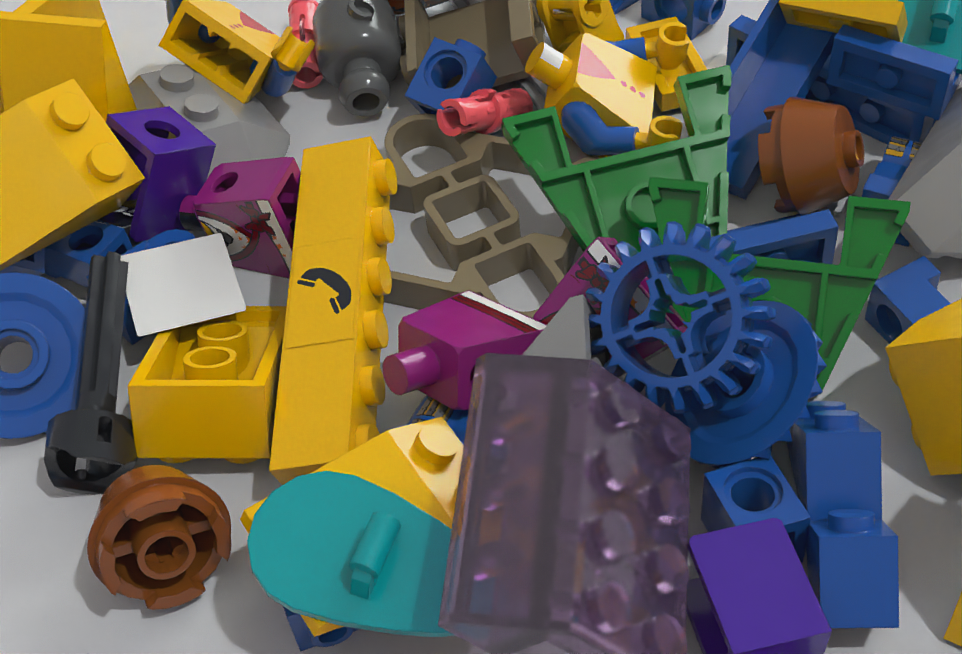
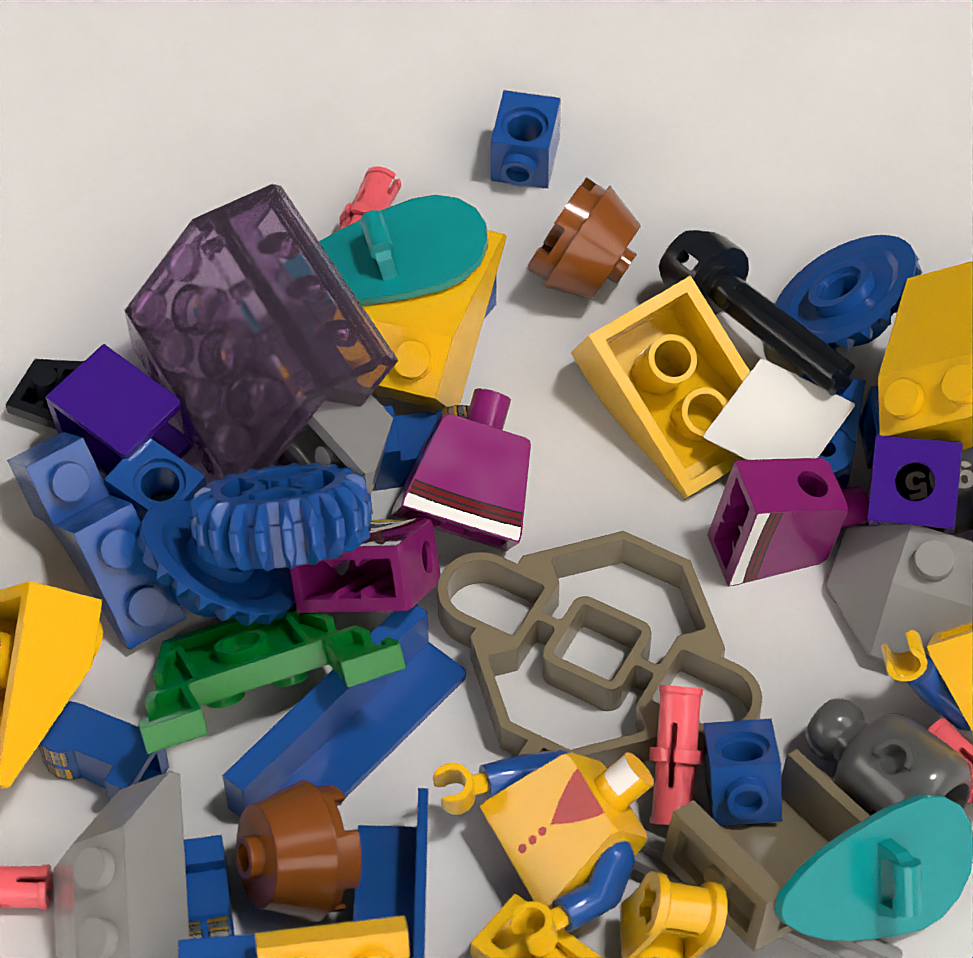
camera: 140 degrees right, 5 degrees up
(334, 308) = (623, 468): yellow brick -> none
(613, 192) = (431, 708): green wing -> none

